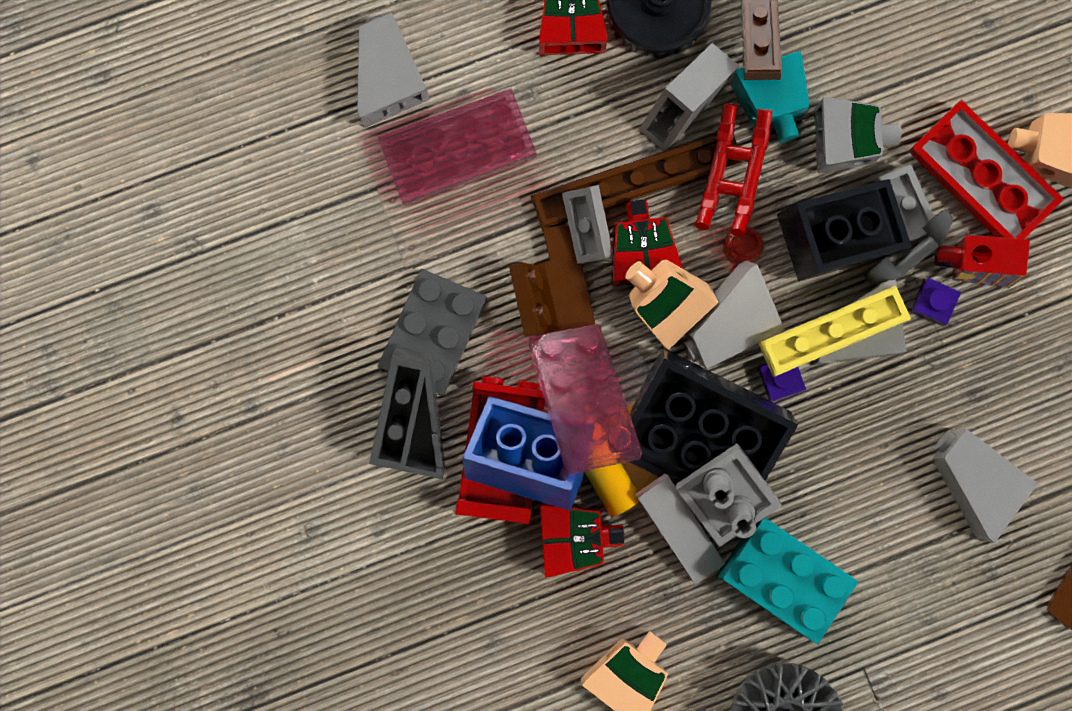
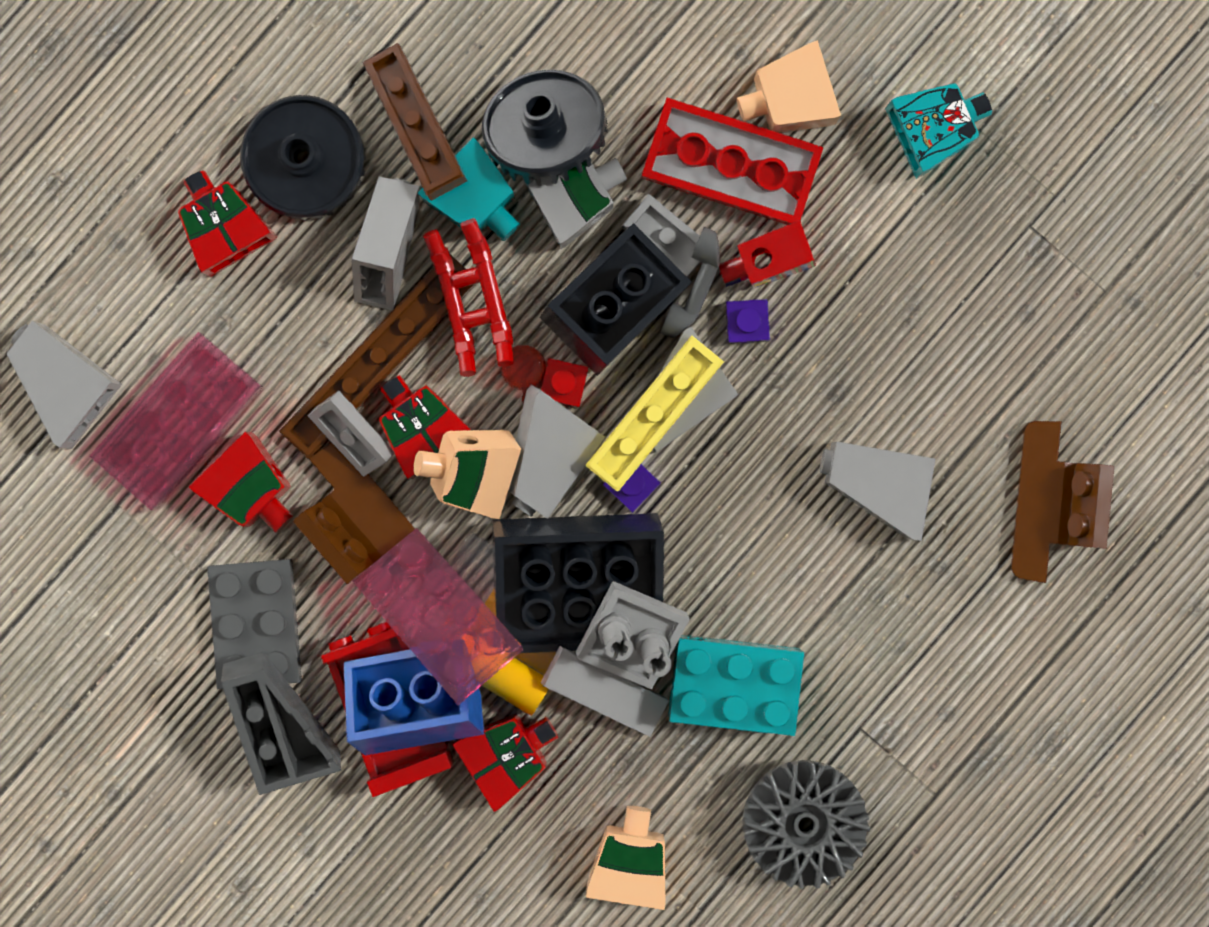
camera: 25 degrees left, 5 degrees up
(484, 221) = (246, 485): none -> red torso
(774, 271) = (564, 382): none -> red plate
(859, 70) = (544, 125): none -> wheel

